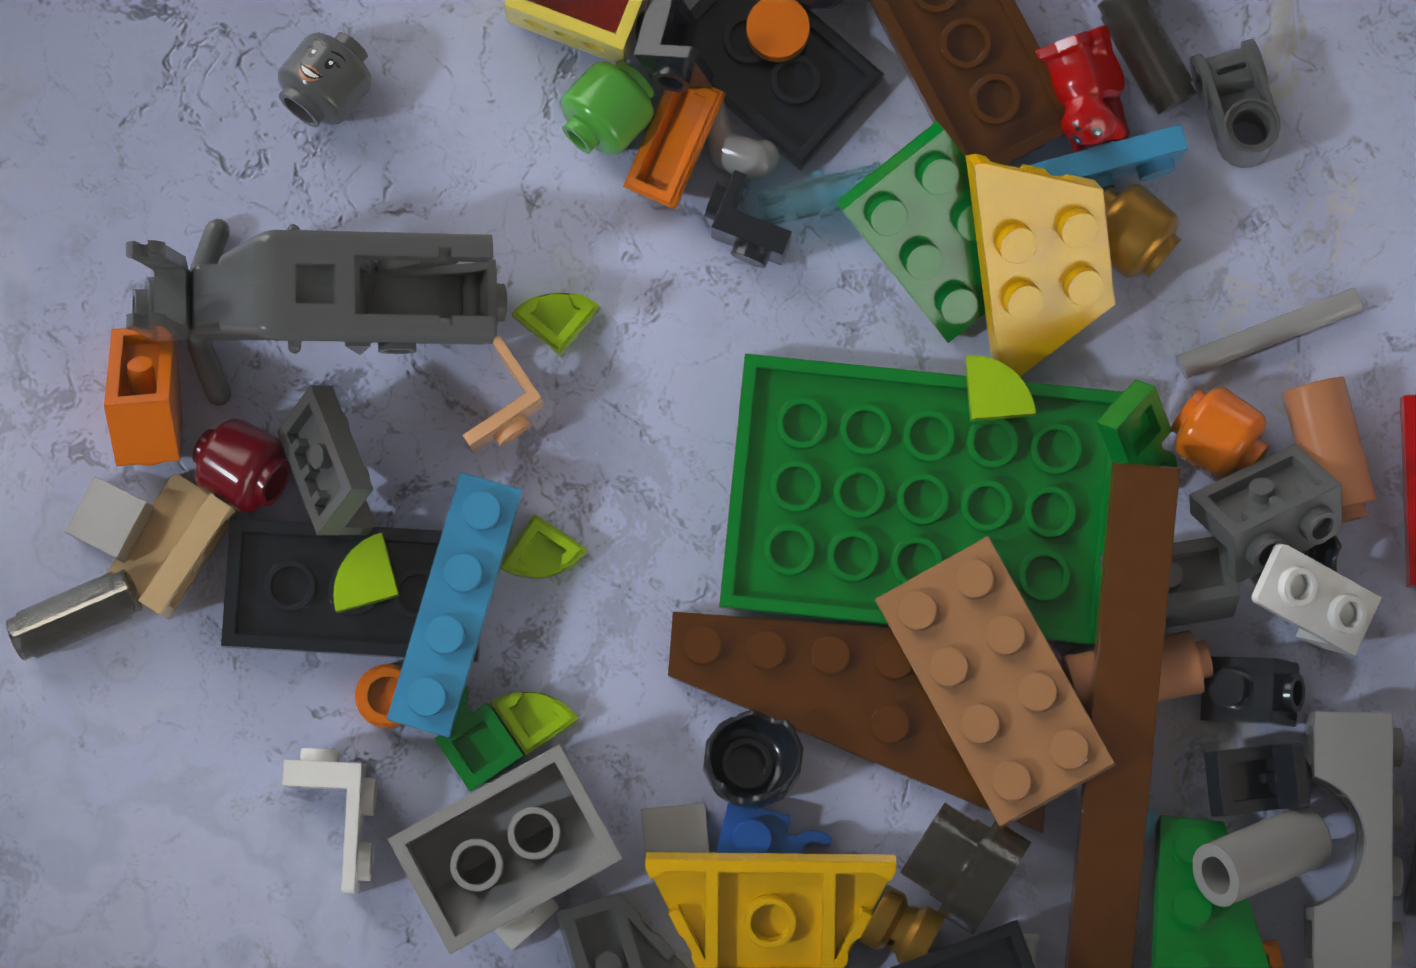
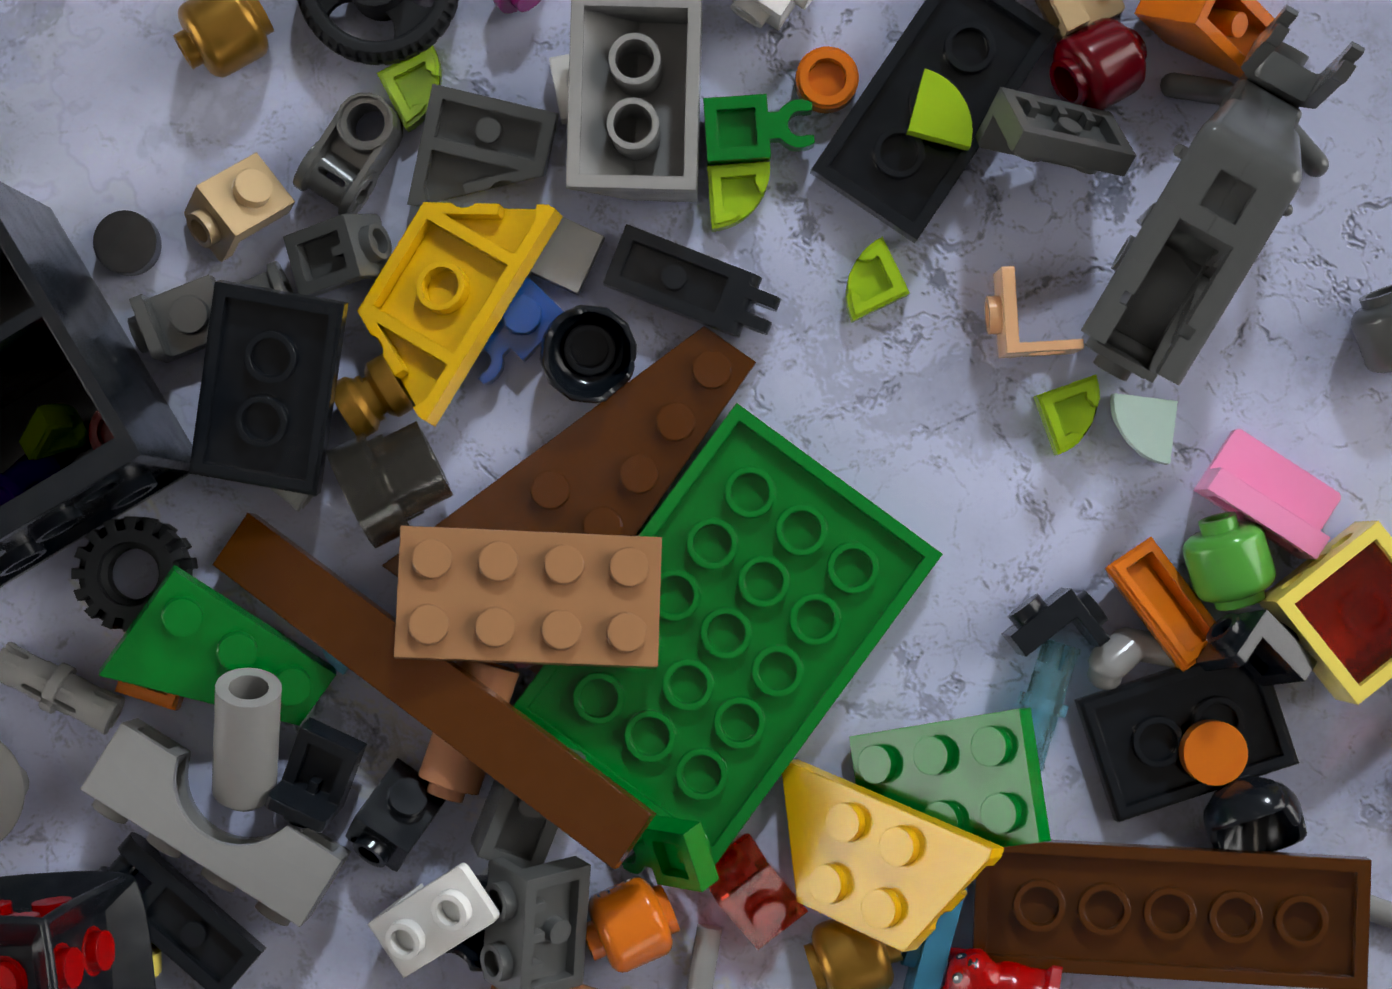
camera: 120 degrees right, 5 degrees up
(455, 605) = (869, 175): dark azure plate -> none
(526, 107) = (1270, 492): none -> bright pink panel
(528, 246) = (1146, 424): none -> light aqua tile
(639, 711) = (688, 283): none -> black hinge
(996, 390) = (781, 751): lime tile -> none
(1129, 344) = (754, 892): none -> clear red bracket

